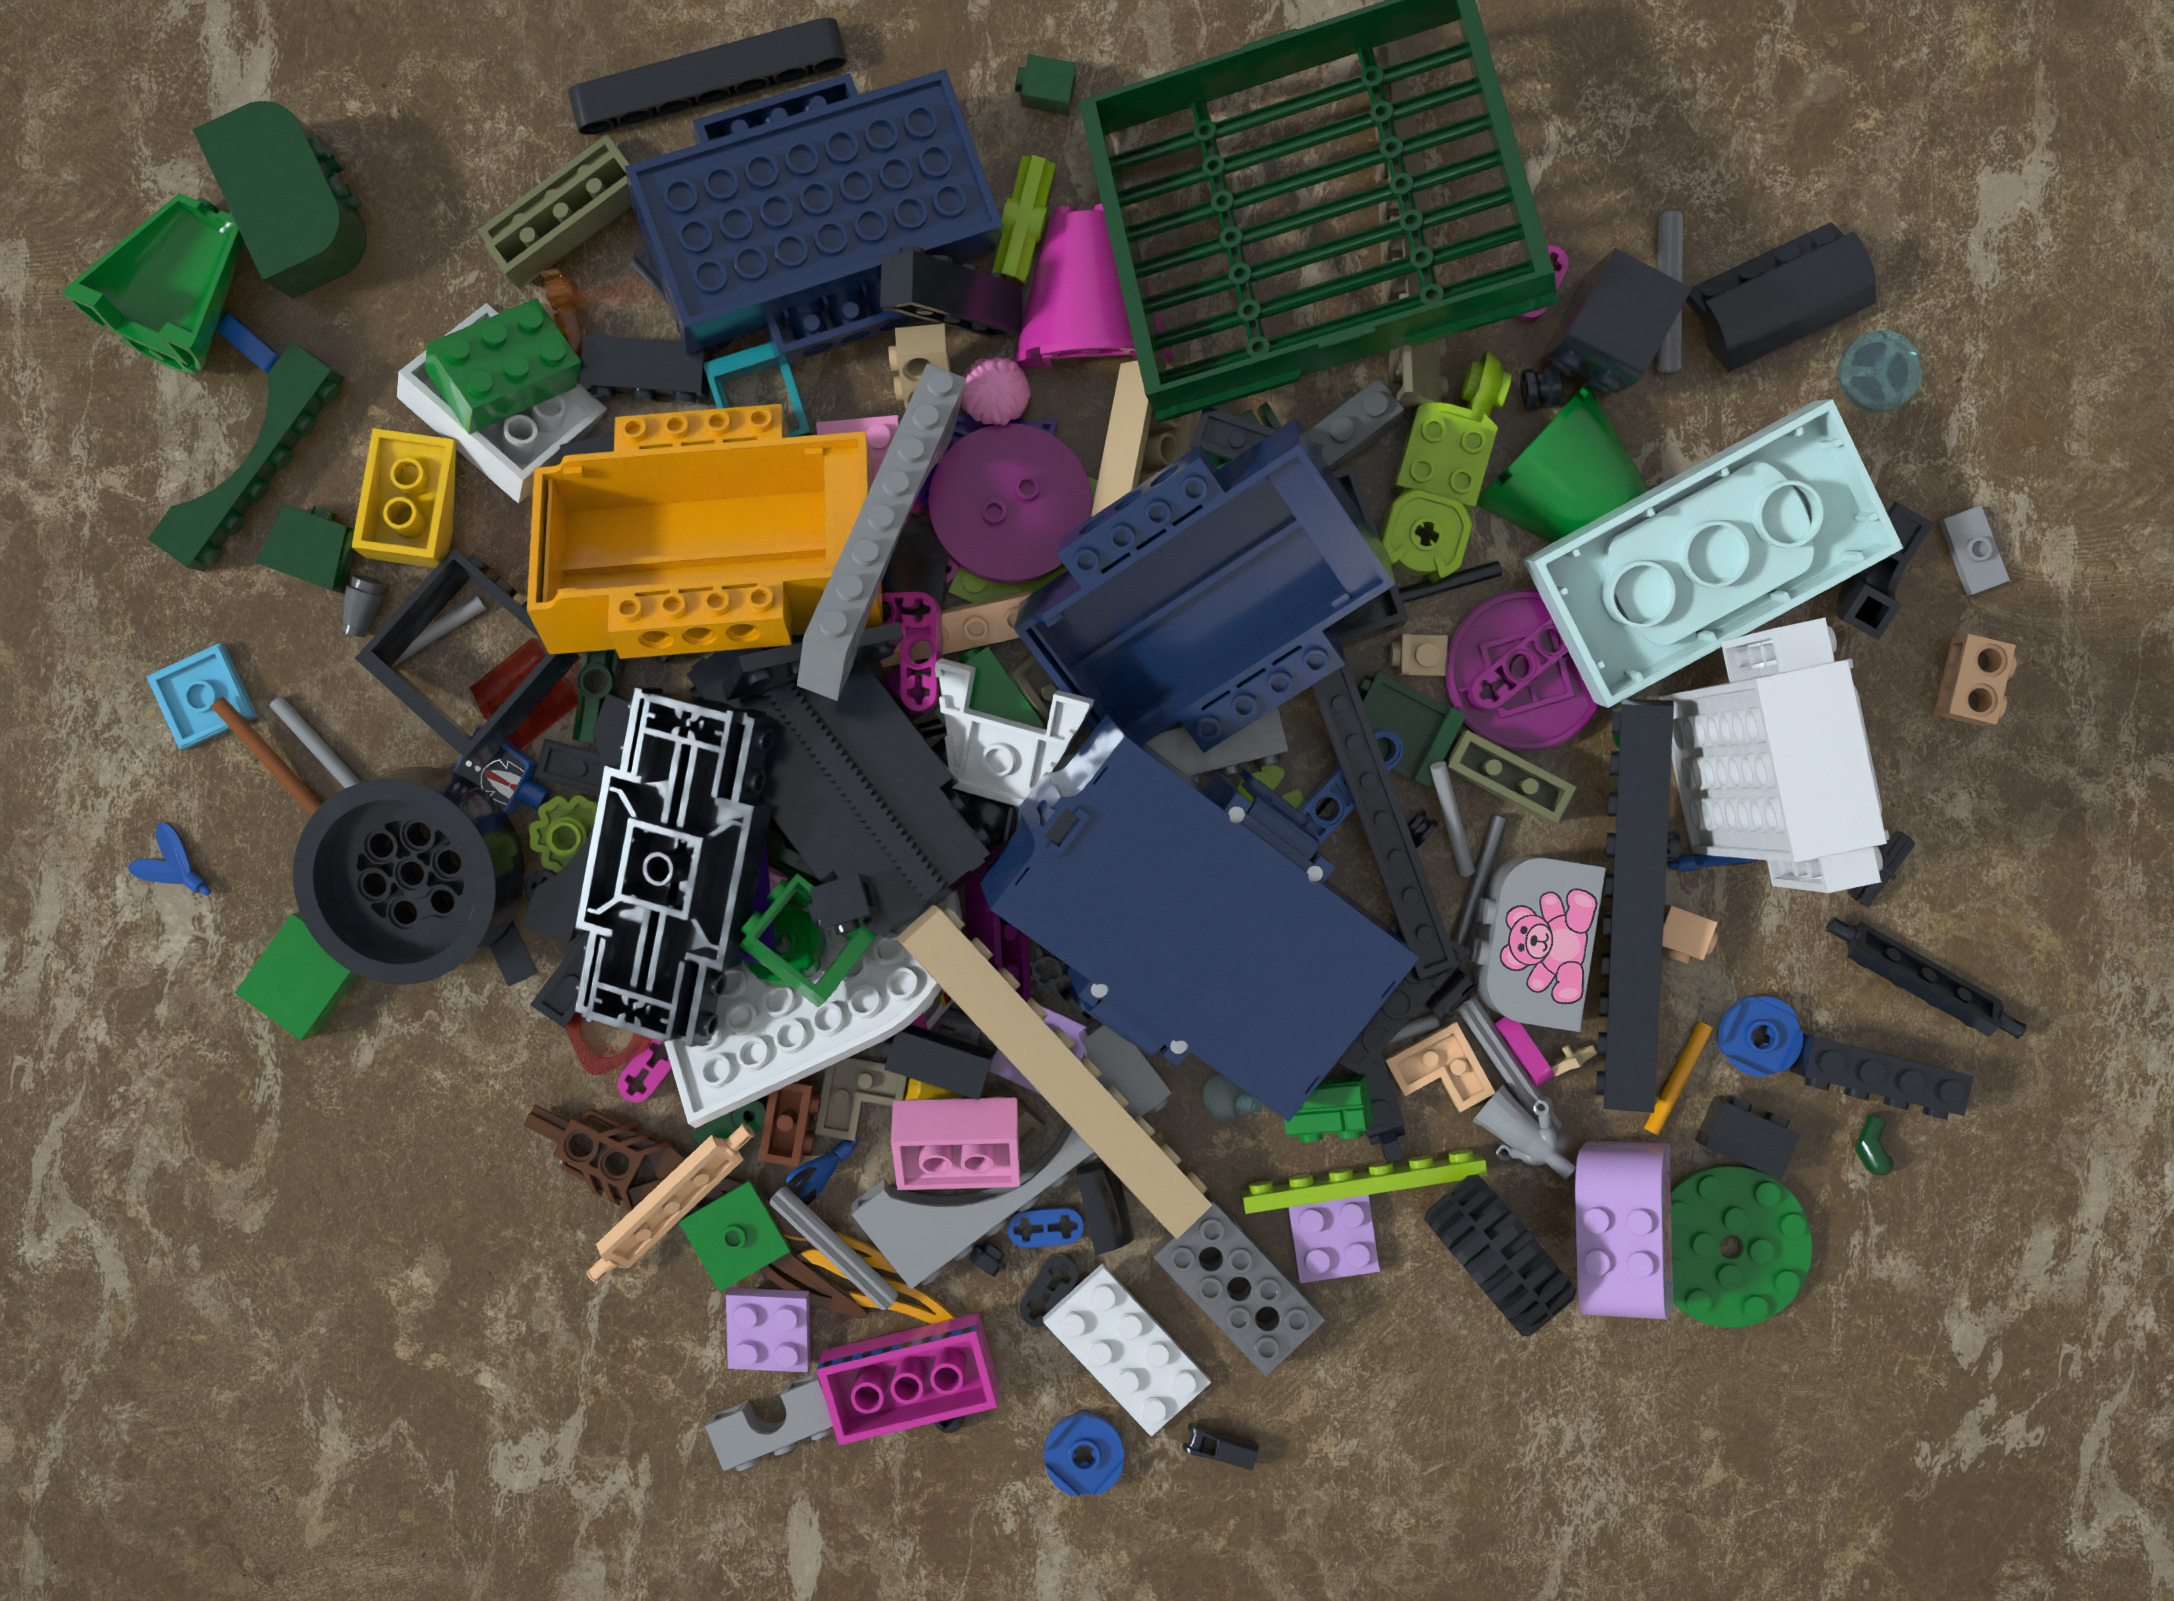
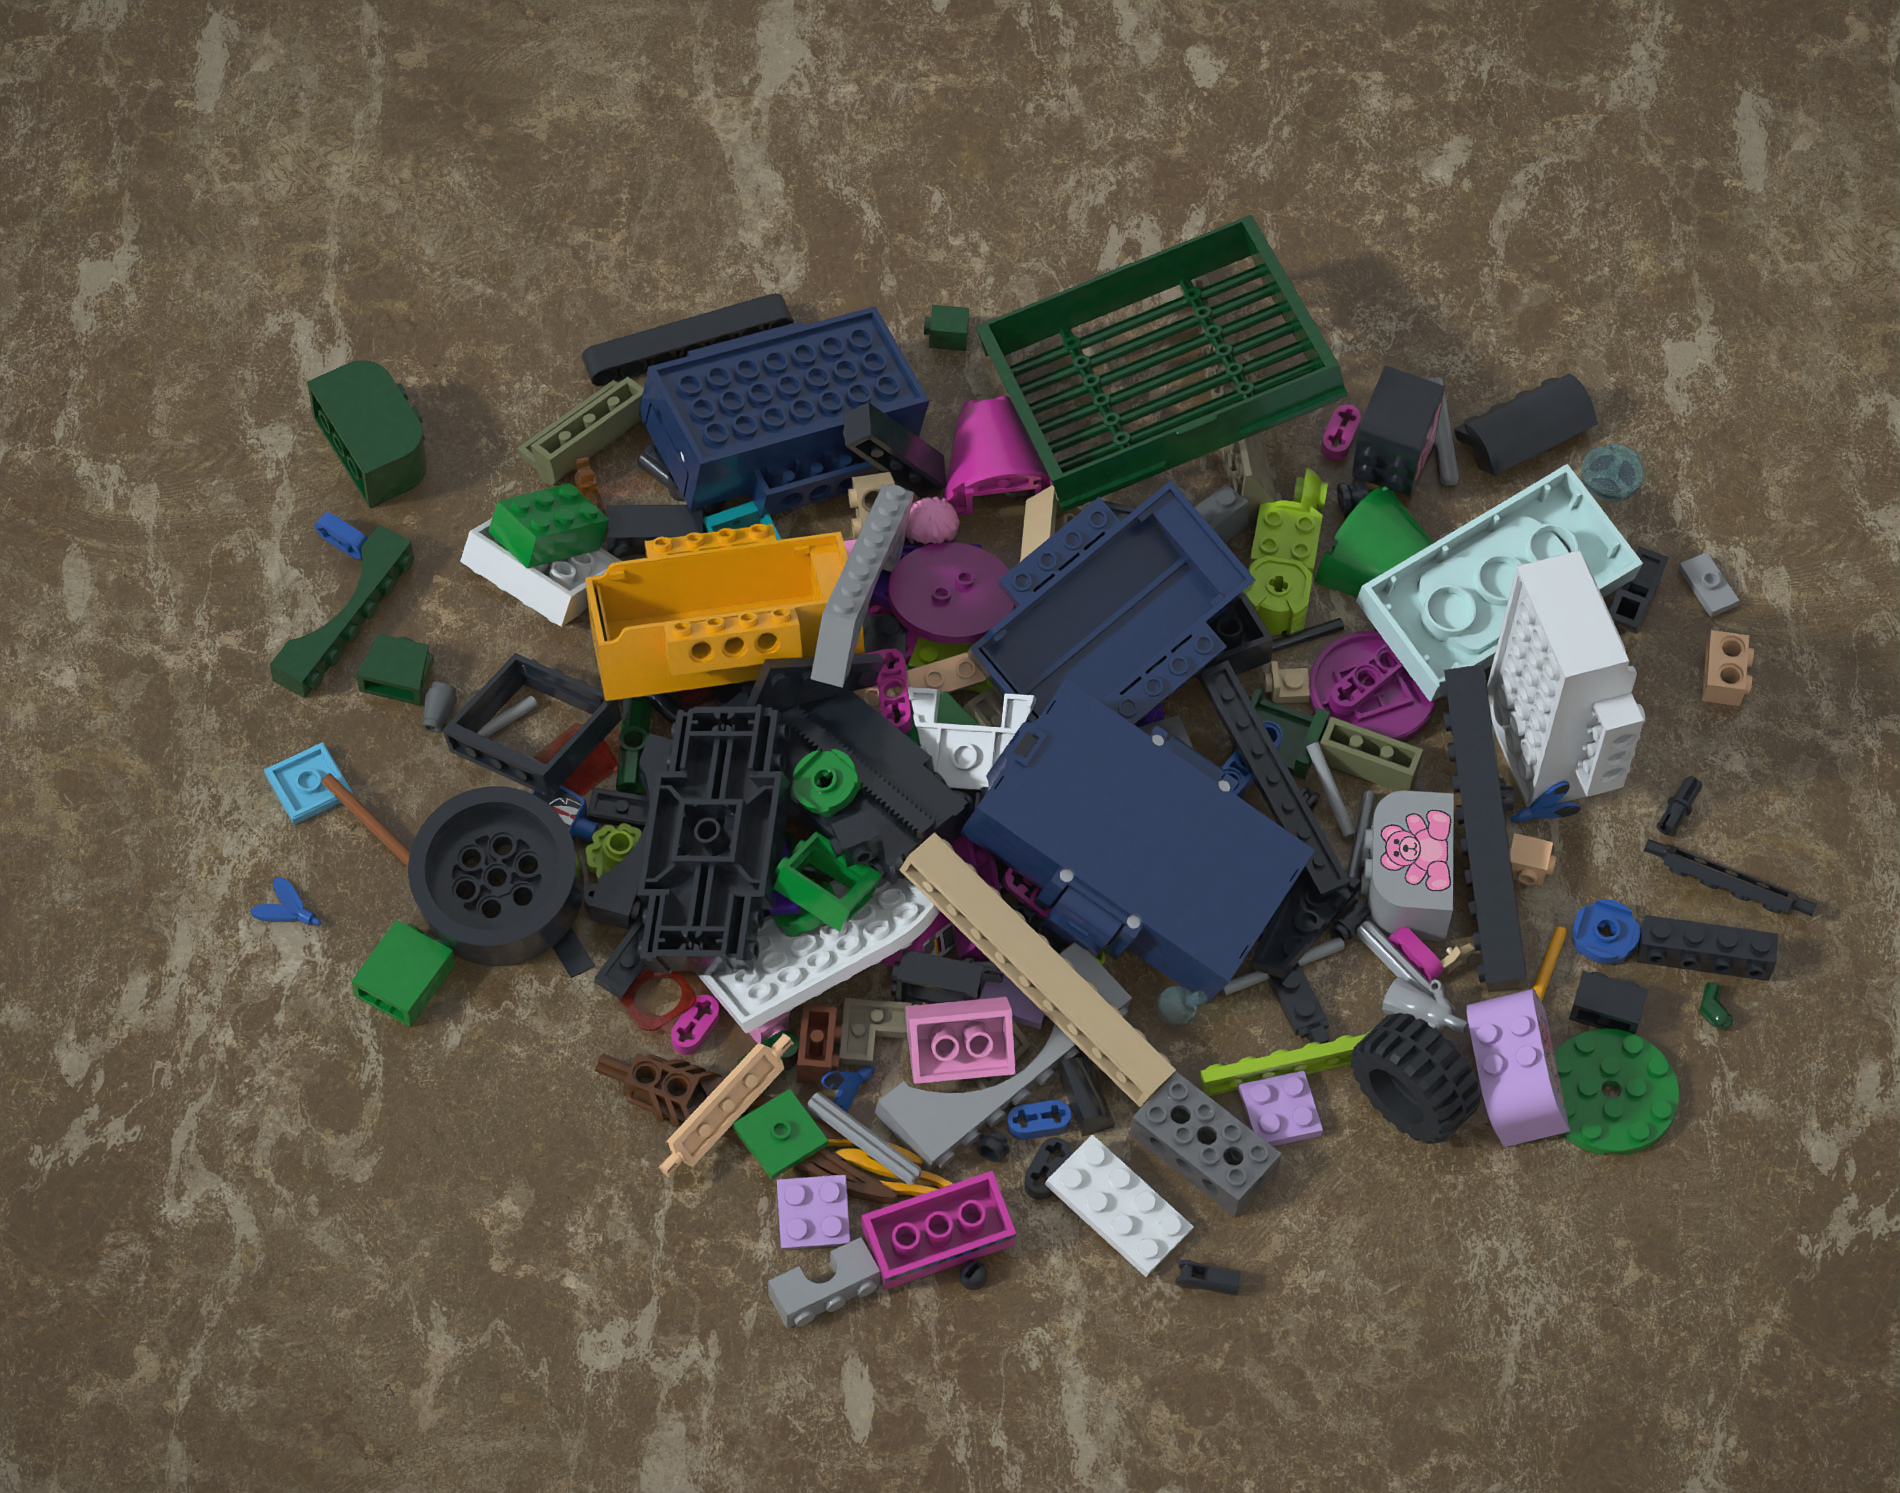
camera: 15 degrees left, 30 degrees down
(165, 283) = (277, 498): green cone -> none
(314, 742) = (394, 803): light grey bar -> none
(407, 499) = (474, 627): yellow slope -> none
(790, 807) = (838, 794): none -> green plate
(1024, 218) = (941, 410): lime piece -> none
(1084, 1477) = (1094, 1311): blue plate -> none
(1333, 1107) = (1260, 1002): green brick -> none
(1443, 1056) = (1352, 965): light nougat plate -> none

